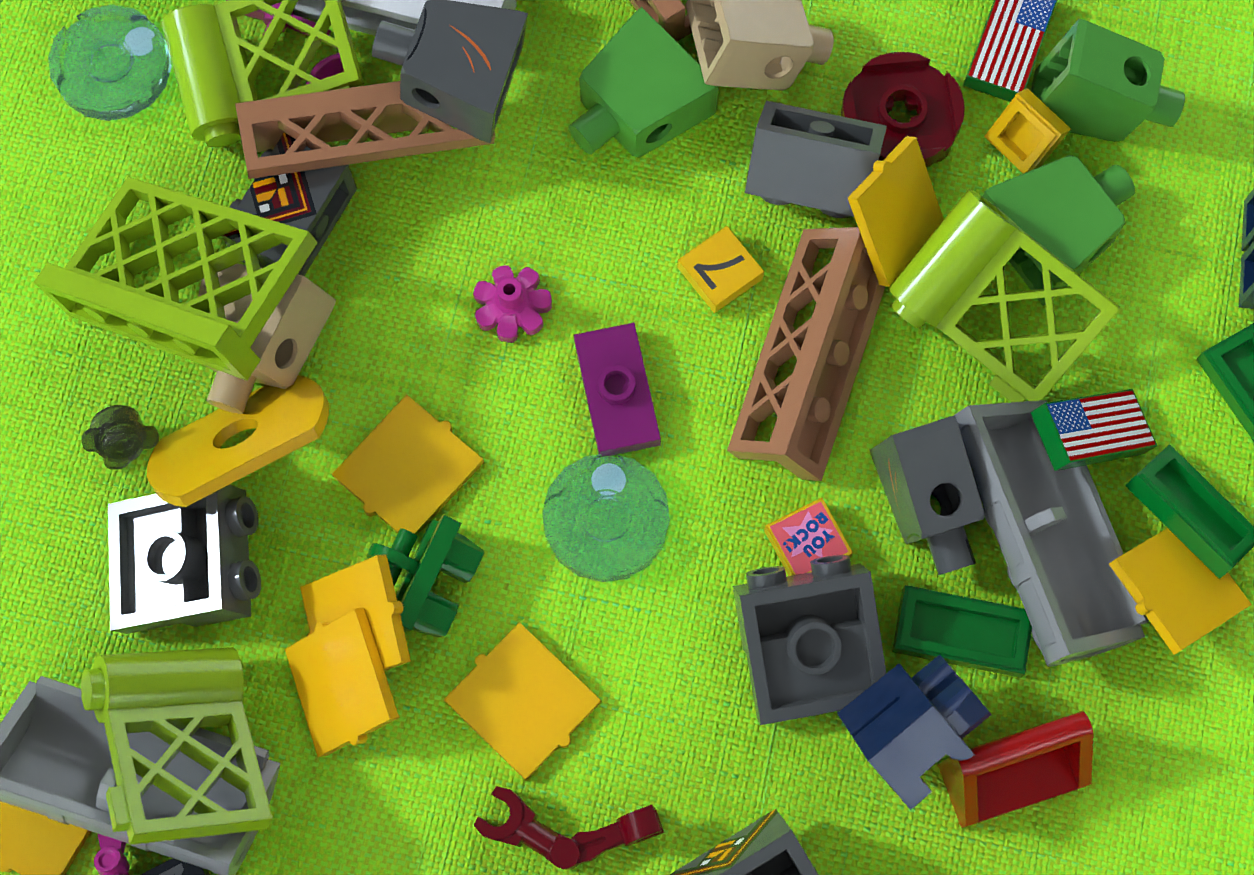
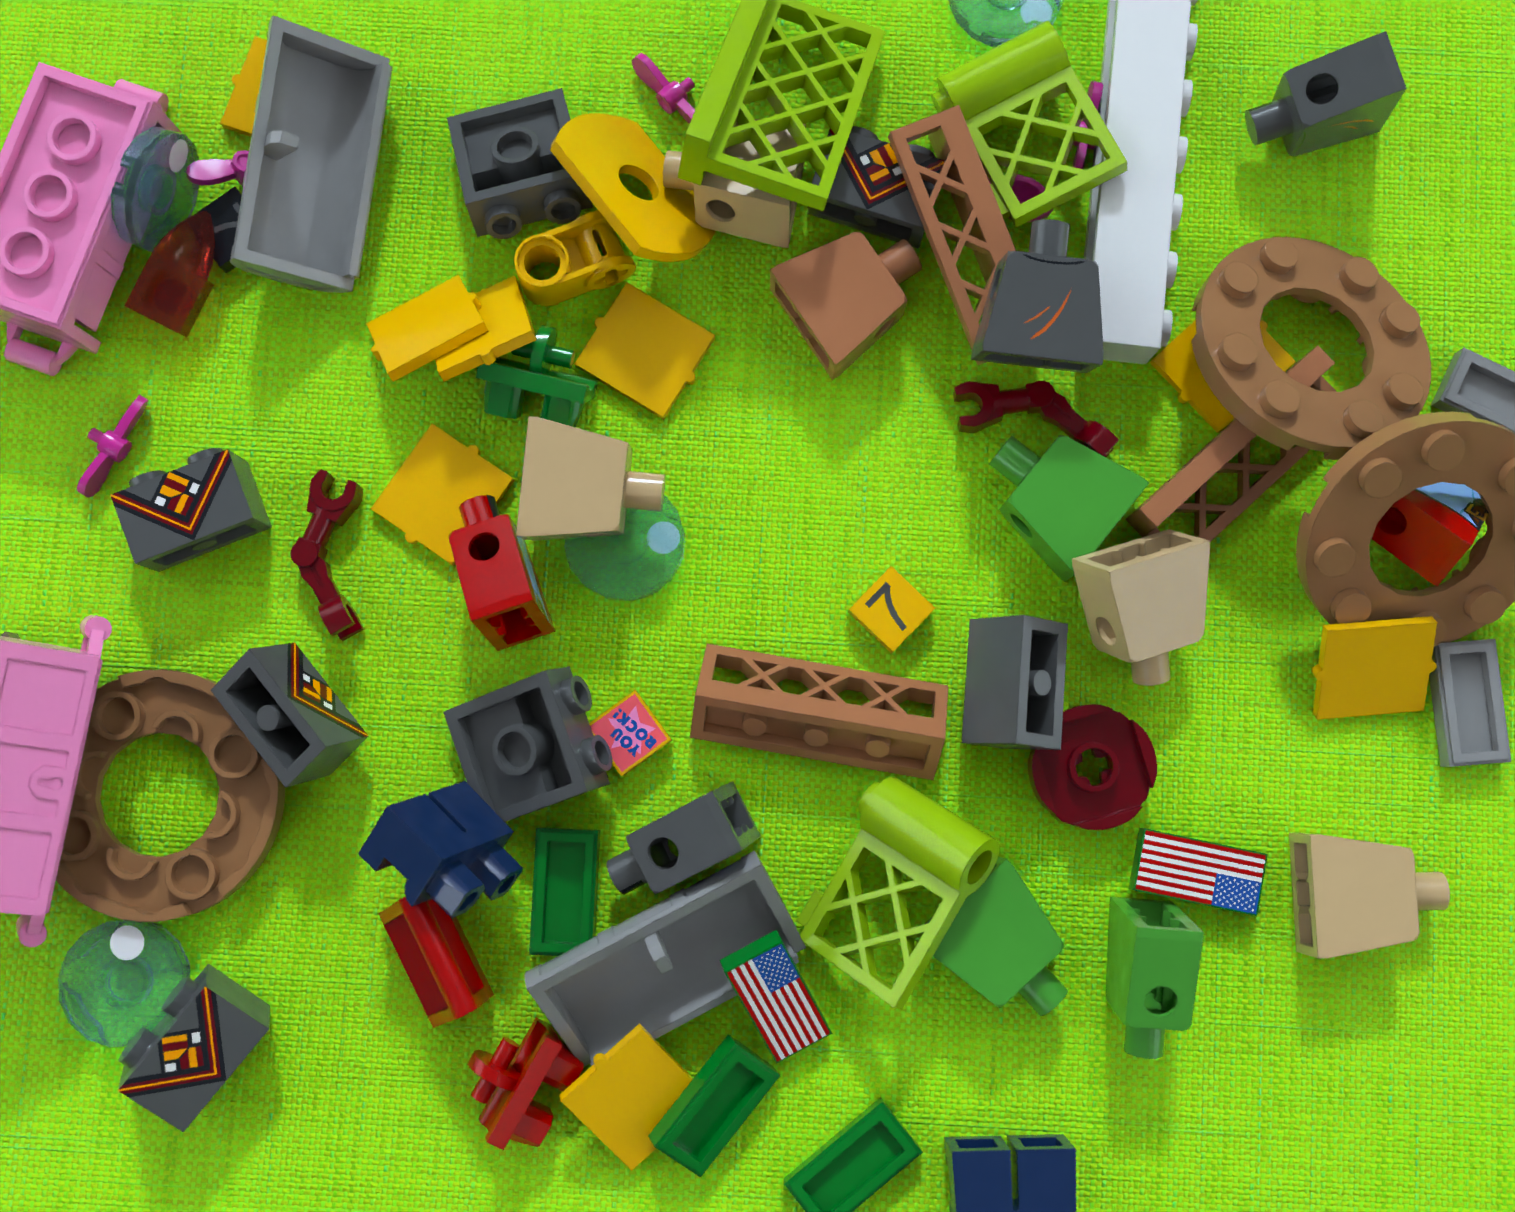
camera: 80 degrees right, 10 degrees up
(118, 436) = (628, 82): clear smoke plate -> none
(144, 396) = (669, 95): none -> dark pink piece
(161, 697) = (380, 163): lime piece -> none
(299, 509) = (579, 260): none -> yellow piece
(398, 258) = (844, 296): none -> nougat torso
(511, 303) = (823, 426): dark pink plant -> none
(533, 102) = (1033, 398): none -> dark red piece
(546, 537) = (579, 484): none -> tan torso
(617, 390) = (751, 529): magenta plate -> none
(651, 640) = (498, 576): none -> red torso
(896, 210) = (971, 772): yellow piece -> none
(1027, 131) = (1090, 898): yellow tile -> none
(1155, 699) = (512, 1079): none -> red hips

